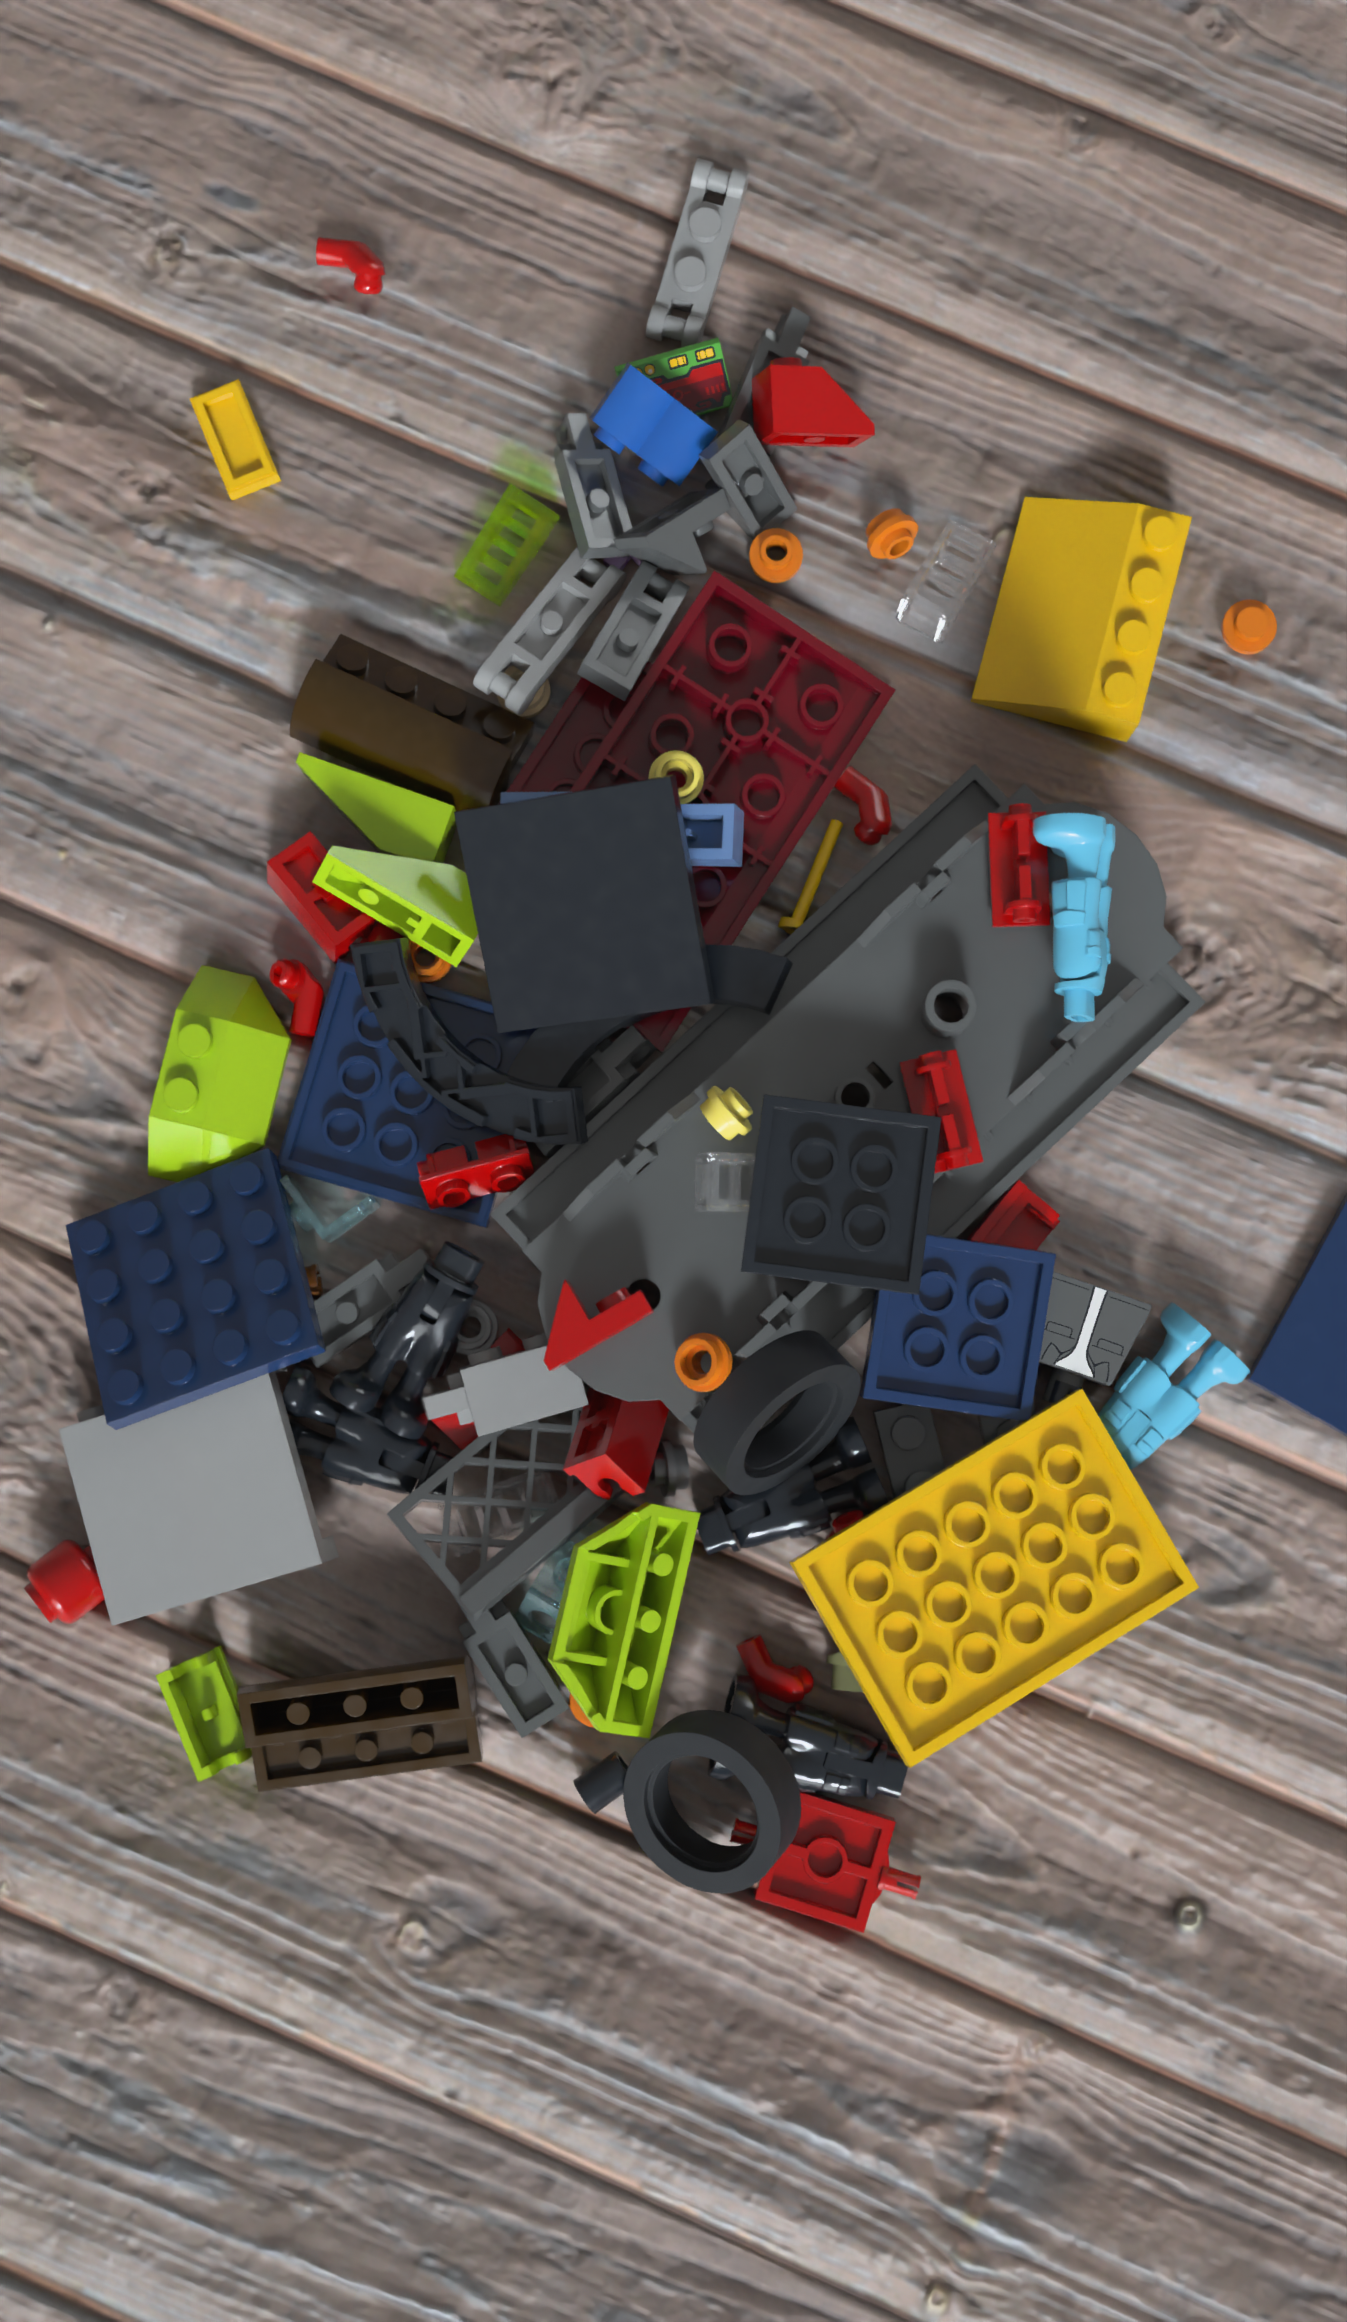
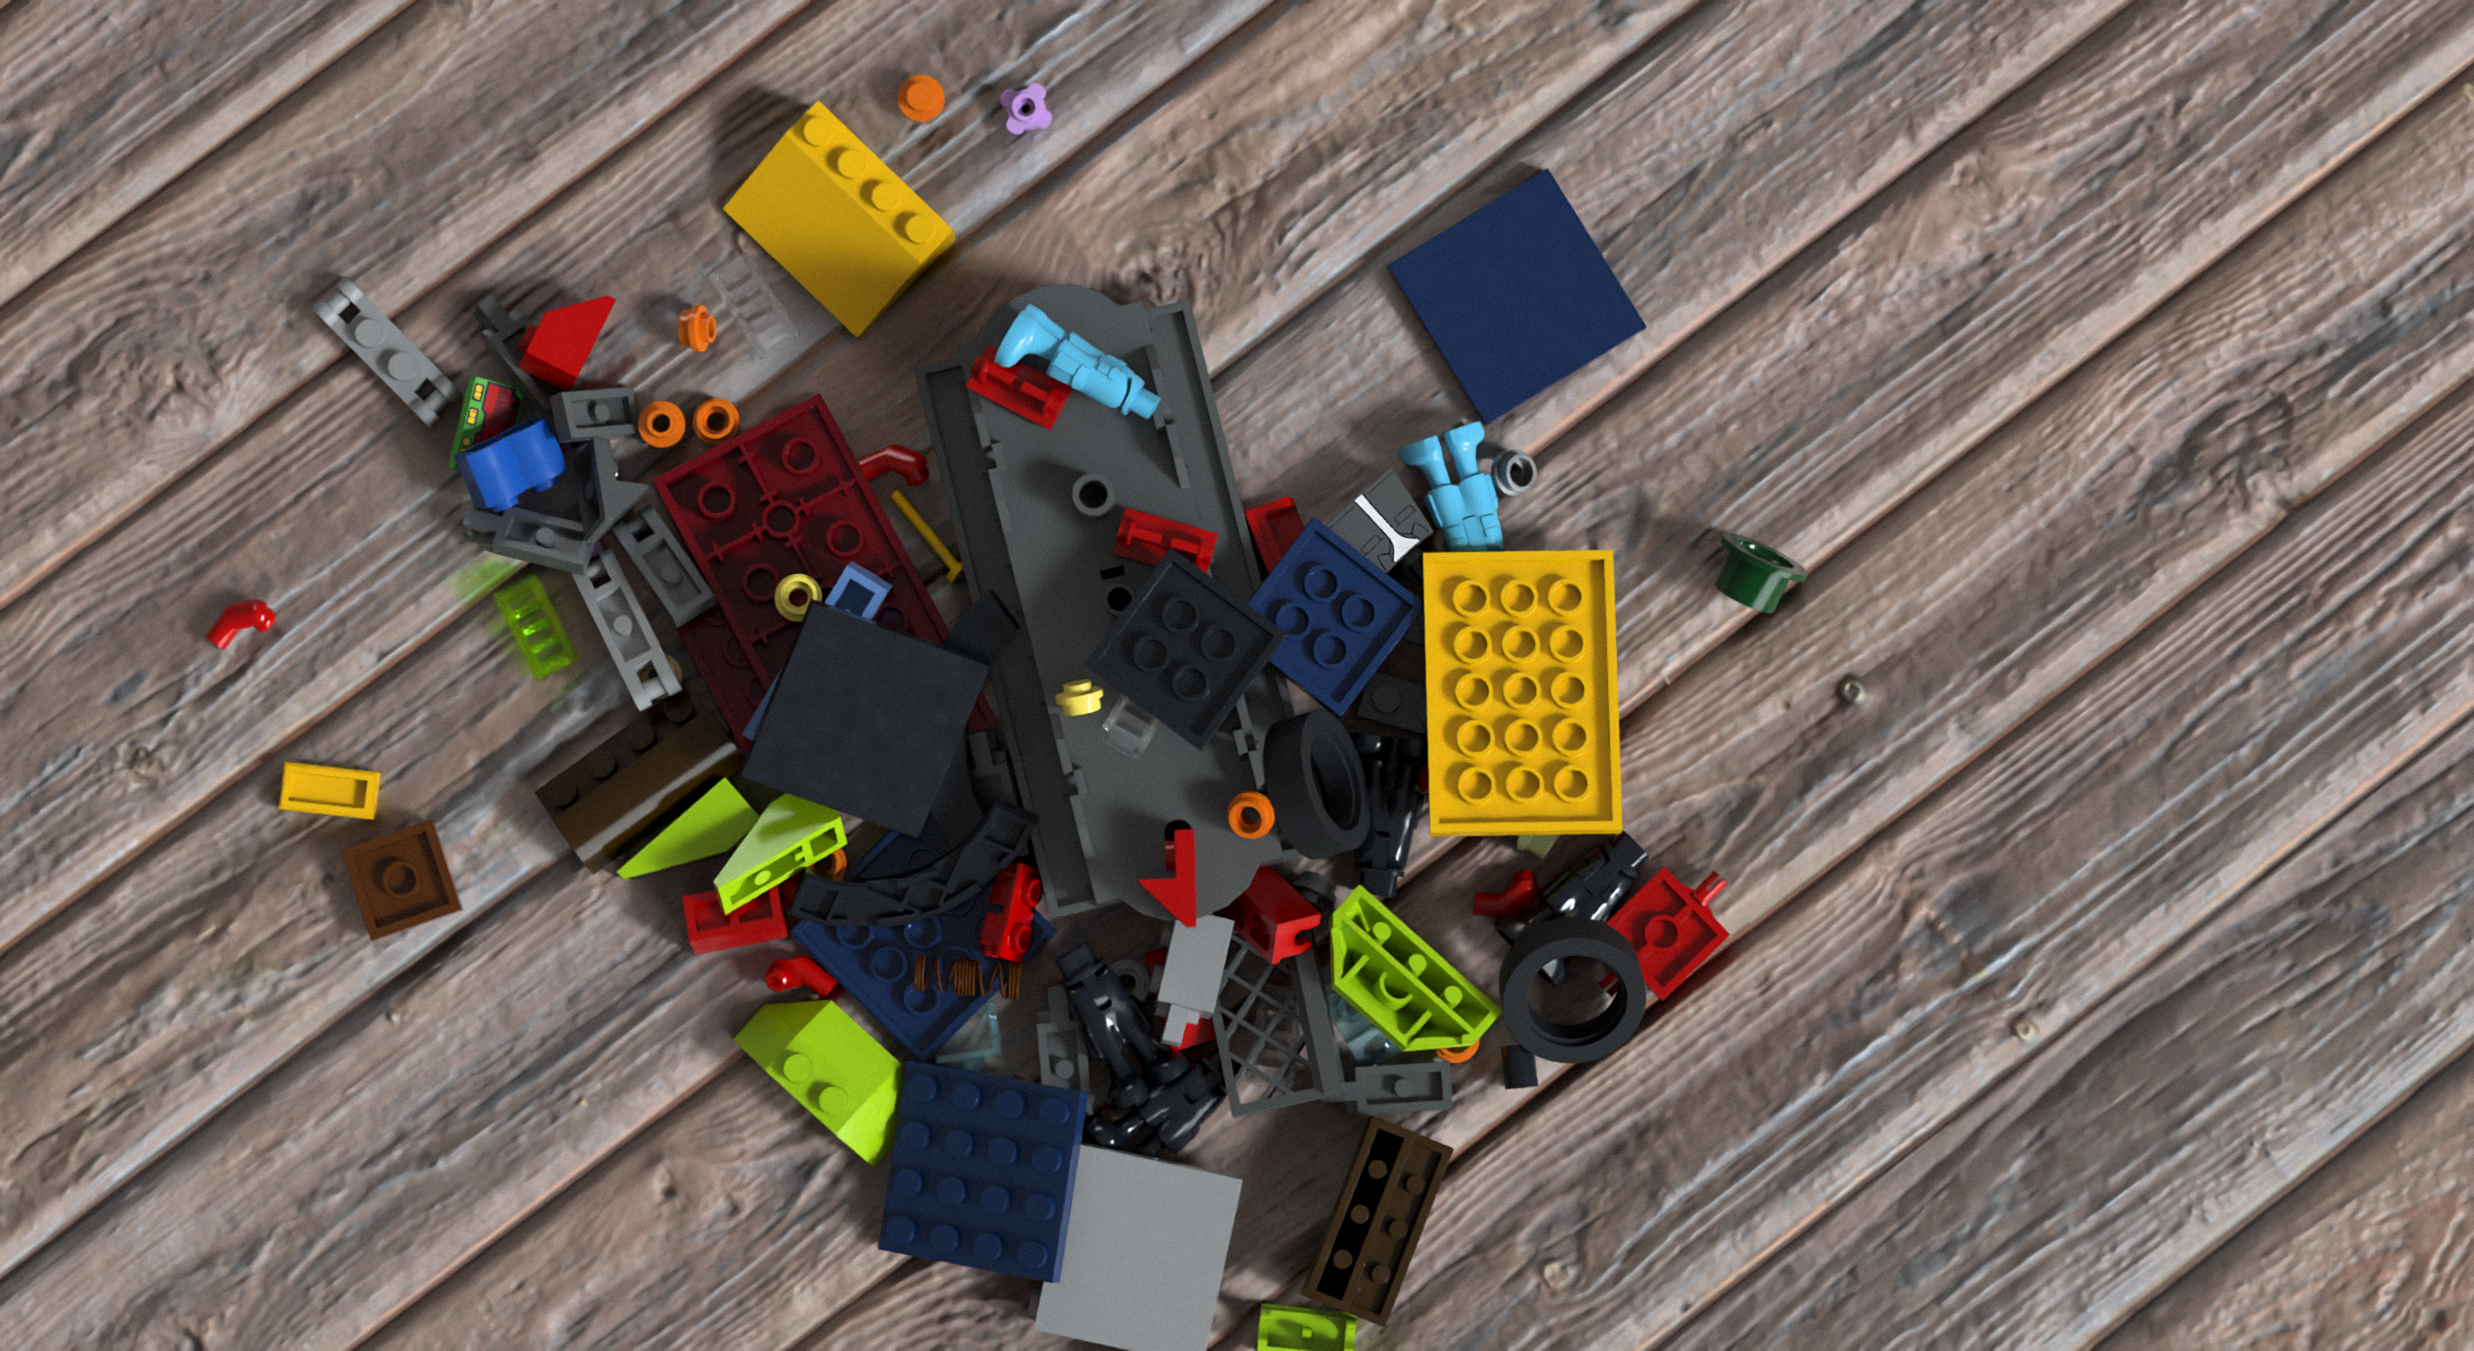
camera: 70 degrees left, 0 degrees up
(183, 554) = (402, 880): none -> reddish brown plate
(383, 1161) = (966, 977): none -> reddish brown piece
(813, 592) = (709, 408): none -> orange plate
(1216, 1435) = (1523, 472): none -> flat silver plate
(1257, 1752) = (1756, 573): none -> dark green piece
(1297, 751) = (1020, 121): none -> lavender plate

